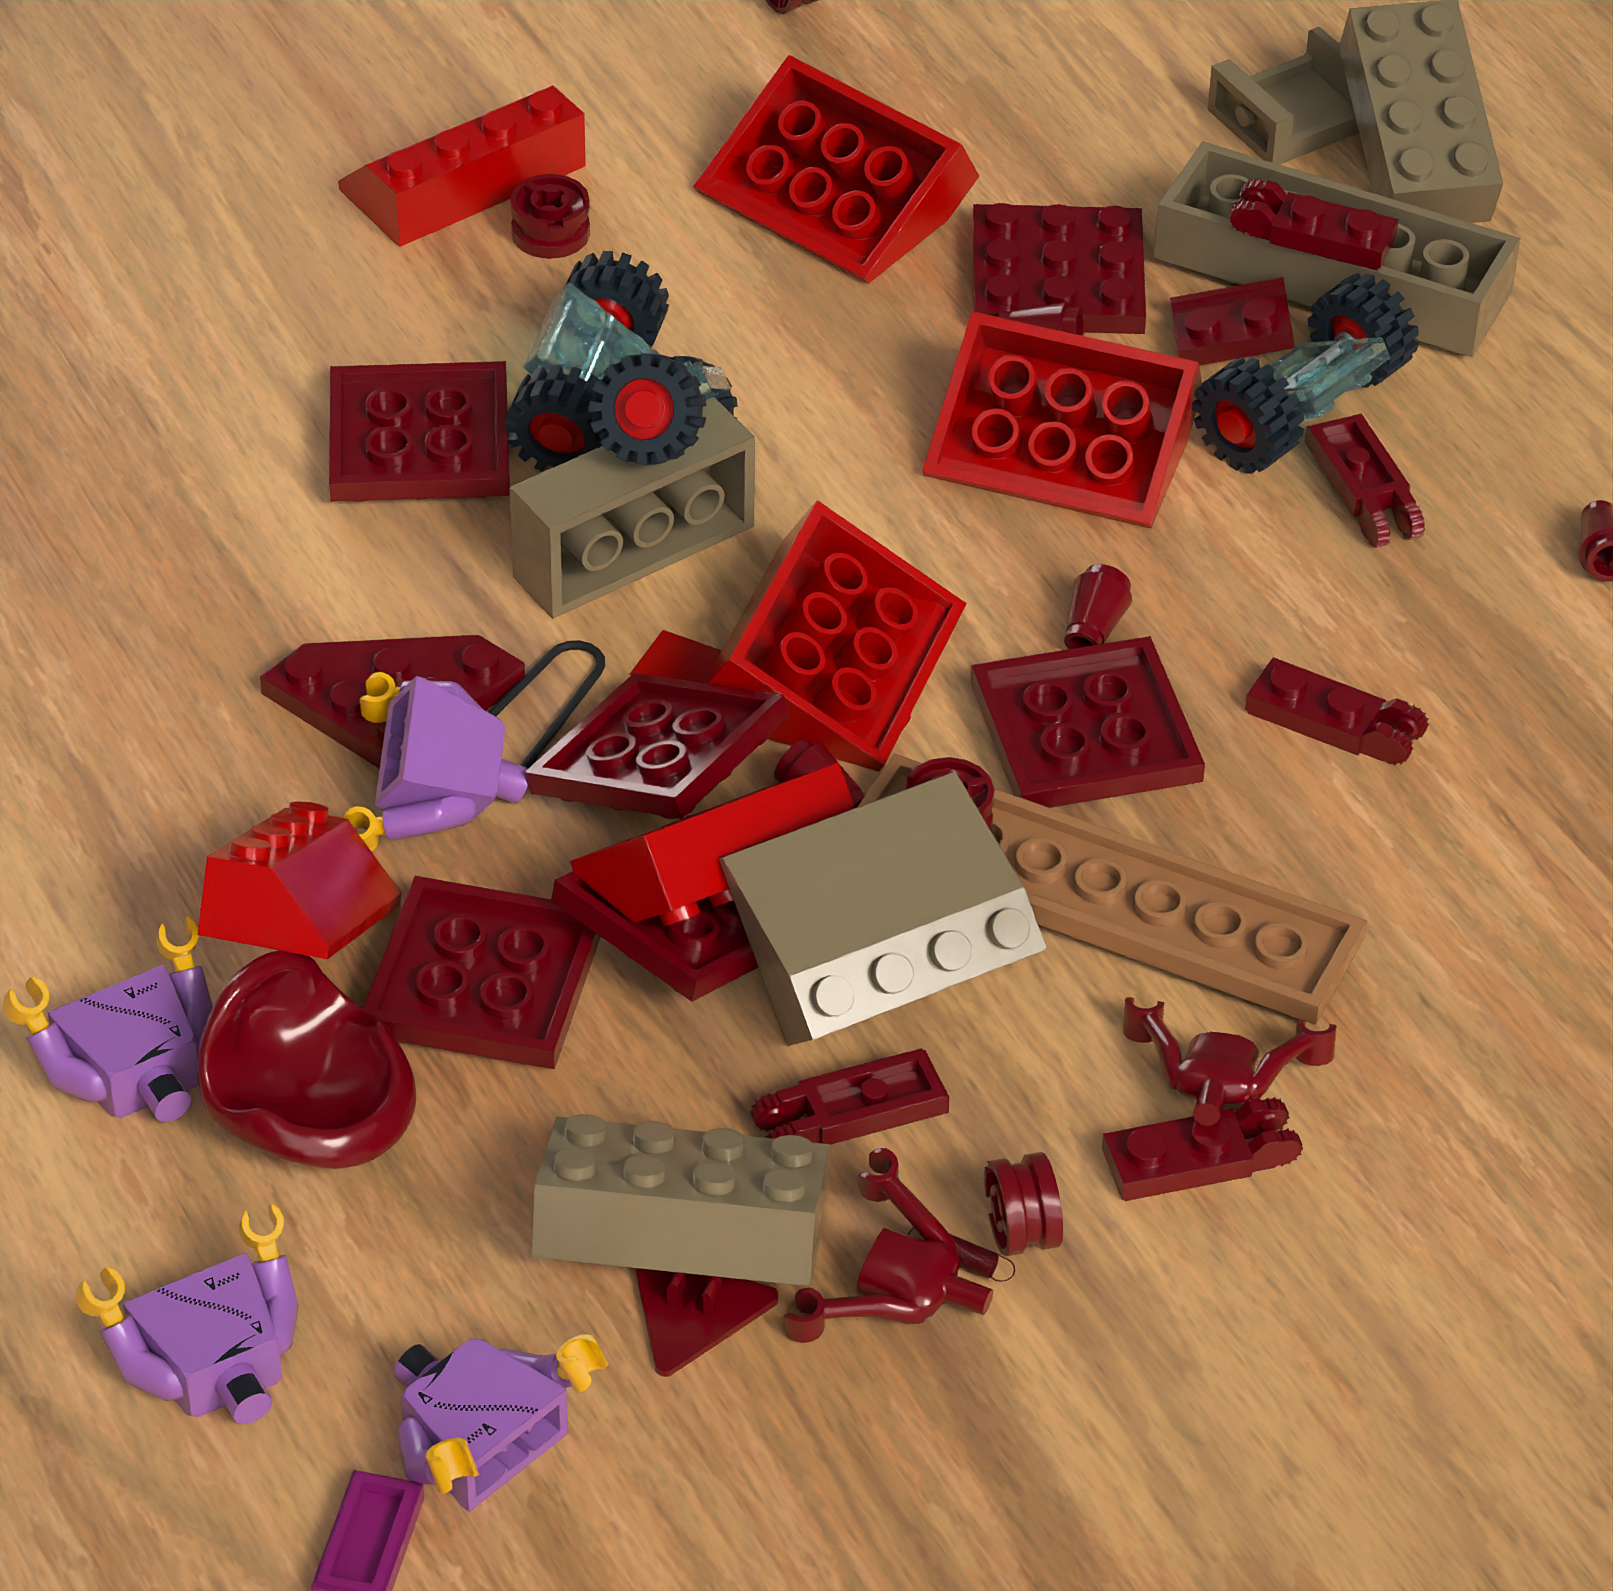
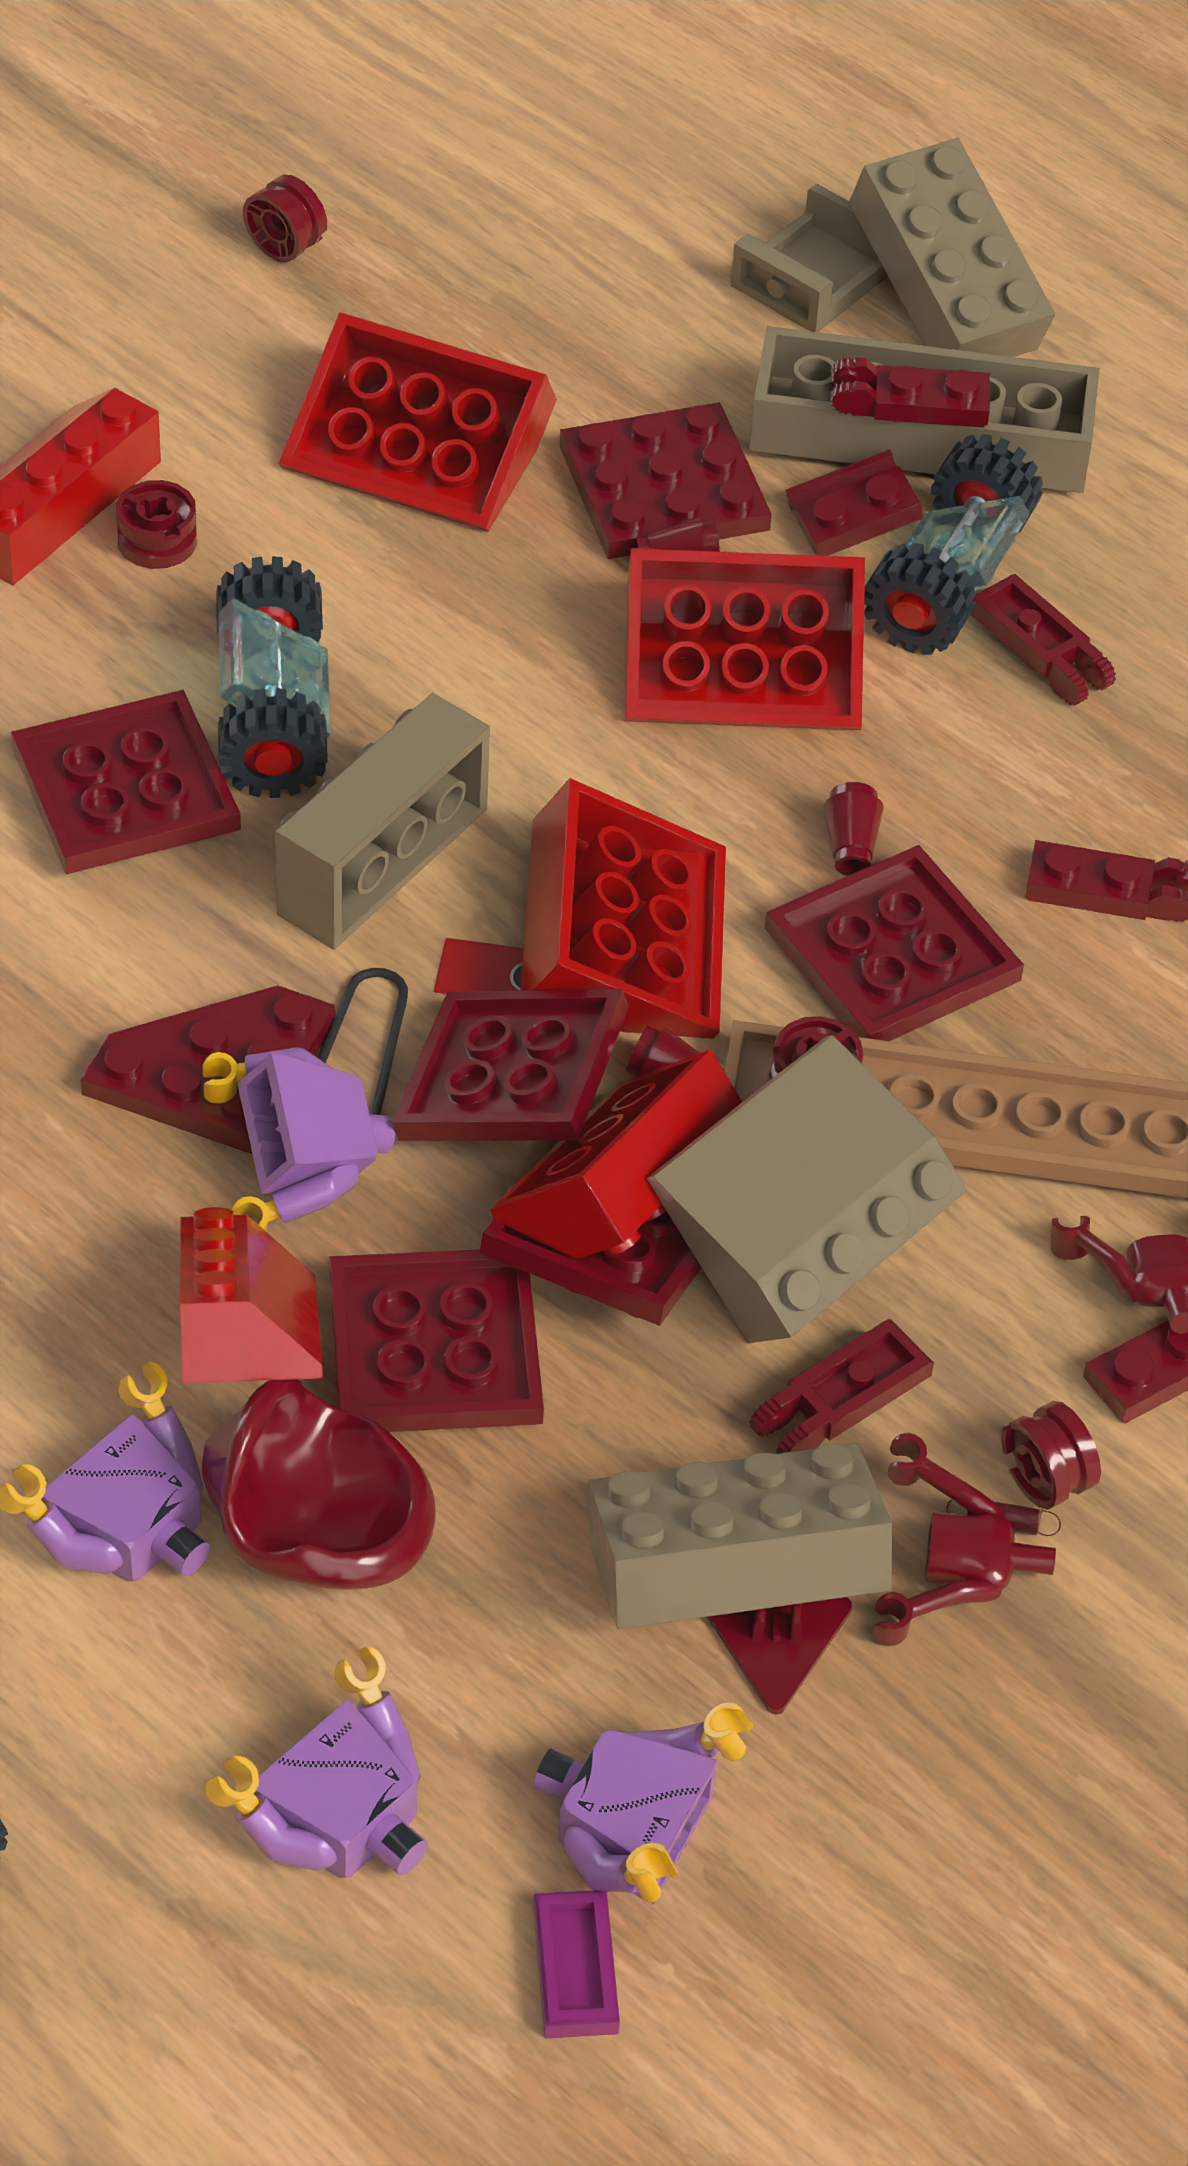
camera: 20 degrees left, 5 degrees up
(654, 405) = (390, 716): black plate -> none

